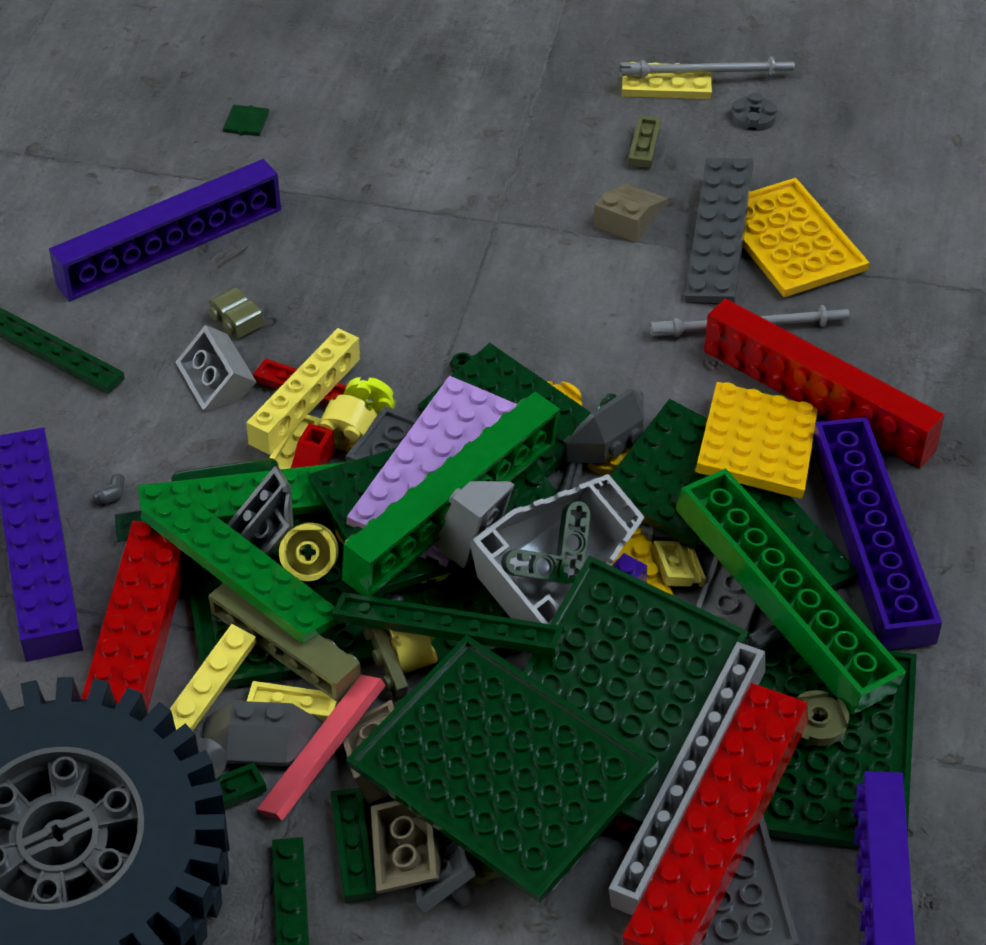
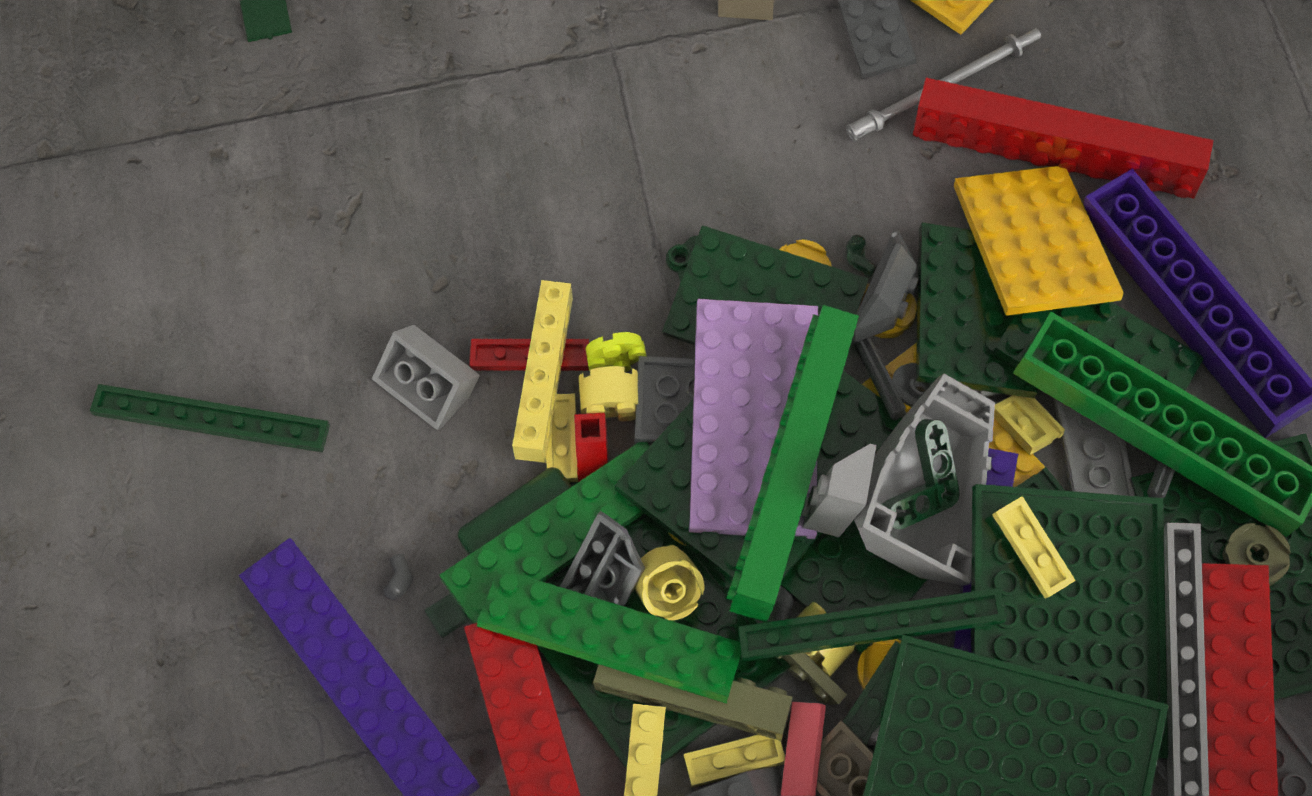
camera: 20 degrees left, 20 degrees up
(165, 229) = (269, 213): dark purple brick -> none
(235, 312) = (404, 290): olive brick -> none
(611, 615) = (1033, 547): none -> light yellow plate

